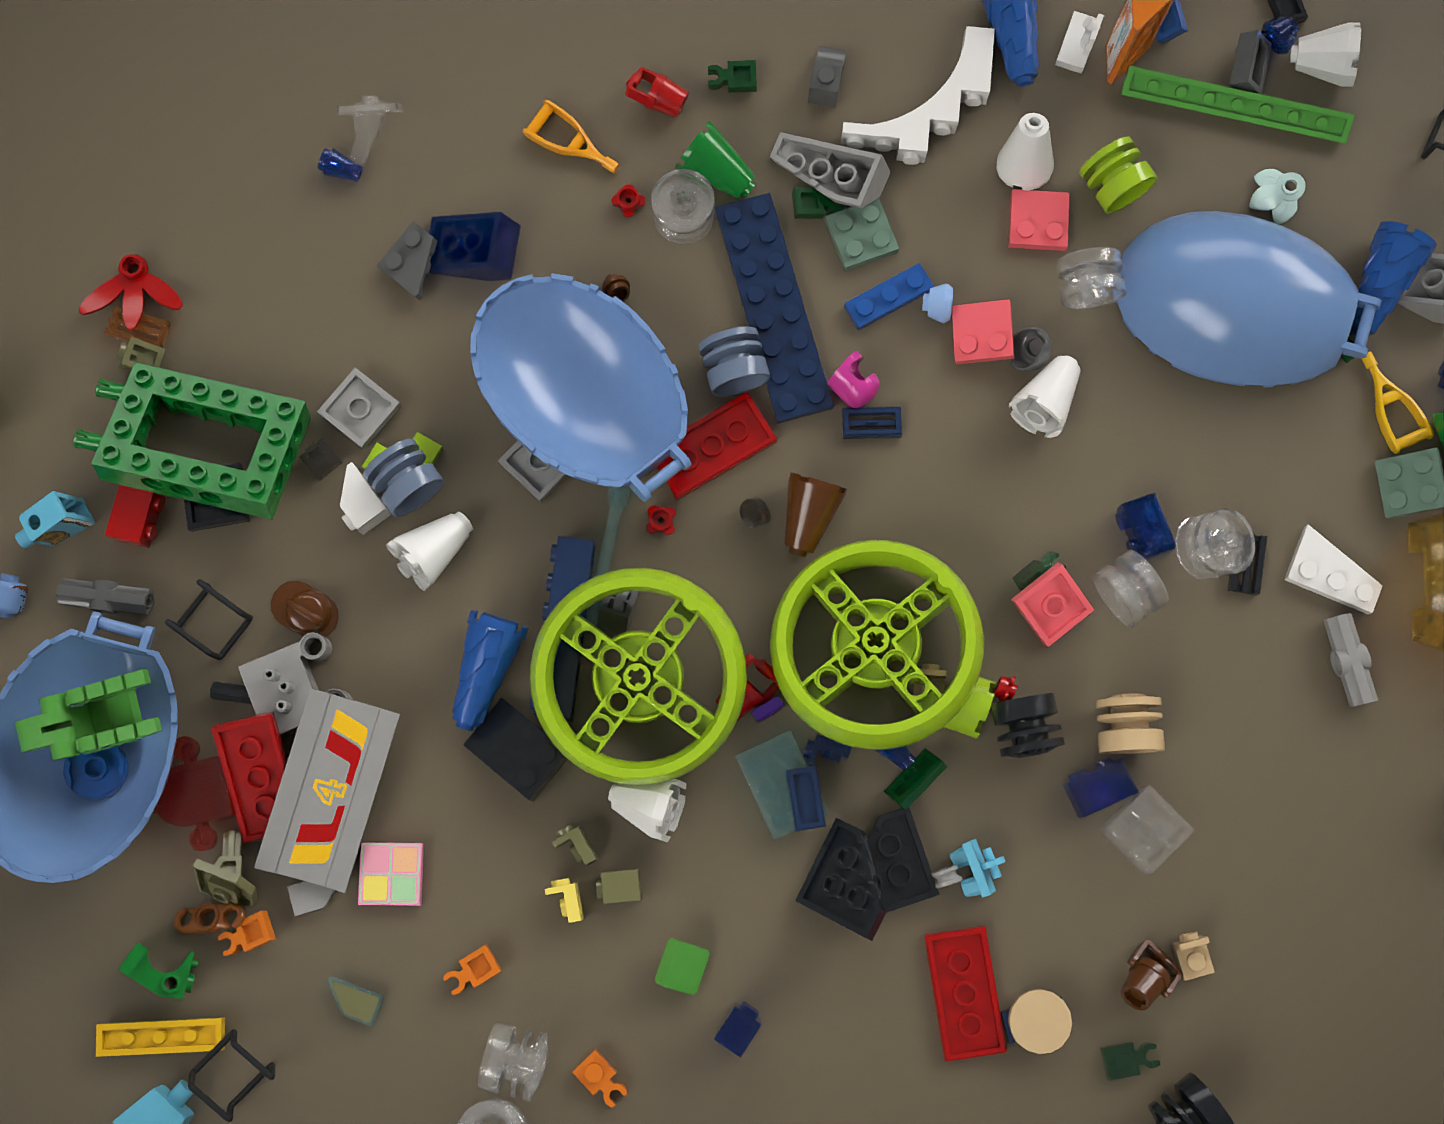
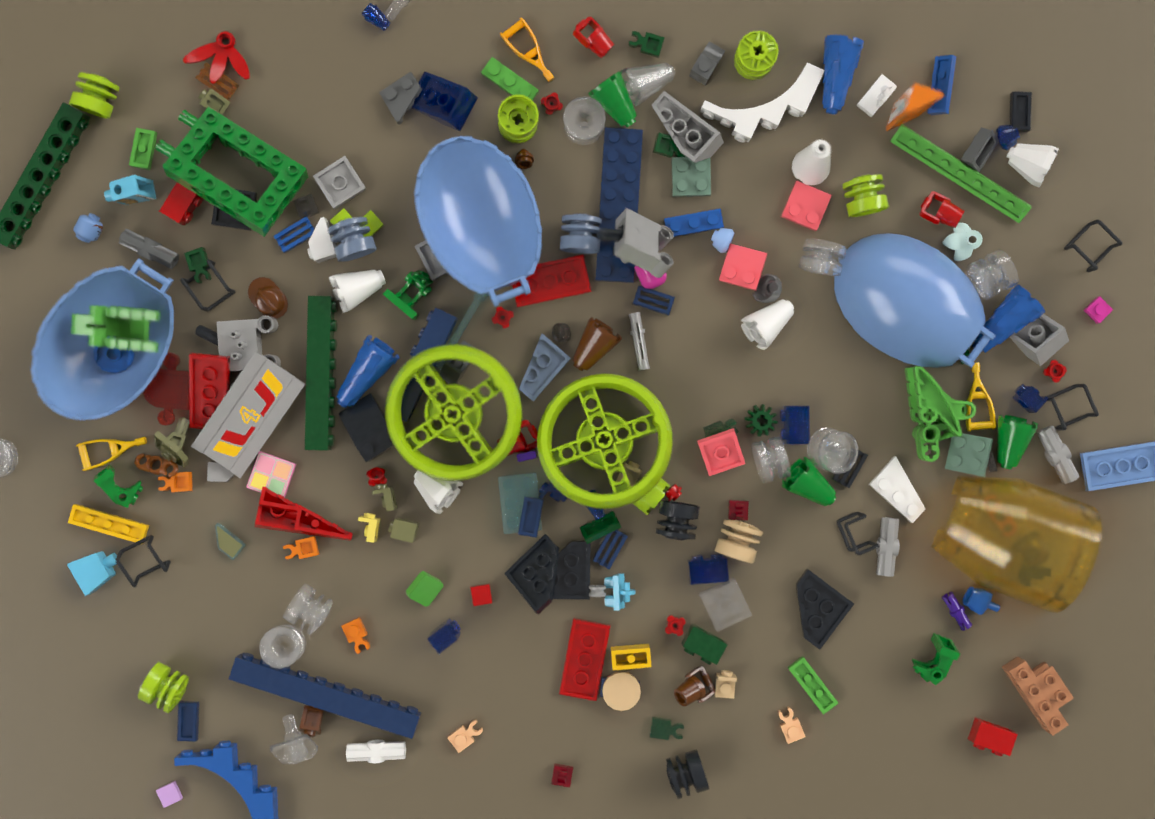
camera: 20 degrees right, 10 degrees up
(56, 456) = (143, 149): none -> bright green plate
(136, 916) = (115, 452): none -> yellow piece
(184, 592) = (197, 262): none -> dark green plate
(308, 498) = (291, 228): none -> blue tile
(417, 694) = (320, 373): none -> dark green brick
(431, 928) = (283, 515): none -> red wedge
(521, 508) = (404, 302): none -> green tile
(551, 819) = (376, 472): none -> red plate
(559, 191) = (508, 80): none -> bright green plate
(584, 219) = (516, 108): none -> lime wheel
(746, 571) = (543, 367): none -> sand blue wing
(752, 123) = (646, 80): none -> clear cone
(772, 947) = (481, 594): none -> red tile
(825, 341) = (639, 241): none -> light grey piece
(866, 476) = (635, 318): none -> light grey pin
(886, 54) = (751, 65): none -> lime wheel
(941, 805) = (602, 562): none -> dark blue tile
(1035, 961) = (631, 656): none -> yellow brick
(1076, 897) = (676, 630): none -> red plate
(1096, 530) = (765, 415): none -> dark green gear
(1109, 682) = (738, 510): none -> dark red tile
(1137, 903) = (703, 644): none -> dark green brick
(1200, 605) = (809, 483): none -> green cone
(1241, 161) = (947, 214): none -> red piece
(1285, 632) = (854, 548): none -> black piece
(1289, 787) = (820, 608): none -> black plate
(1319, 988) = (791, 727): none -> light nougat plate
(1325, 909) = (813, 685): none -> bright green plate
(1337, 432) = (929, 399): none -> bright green piece
(1341, 219) = (992, 274): none -> clear wheel

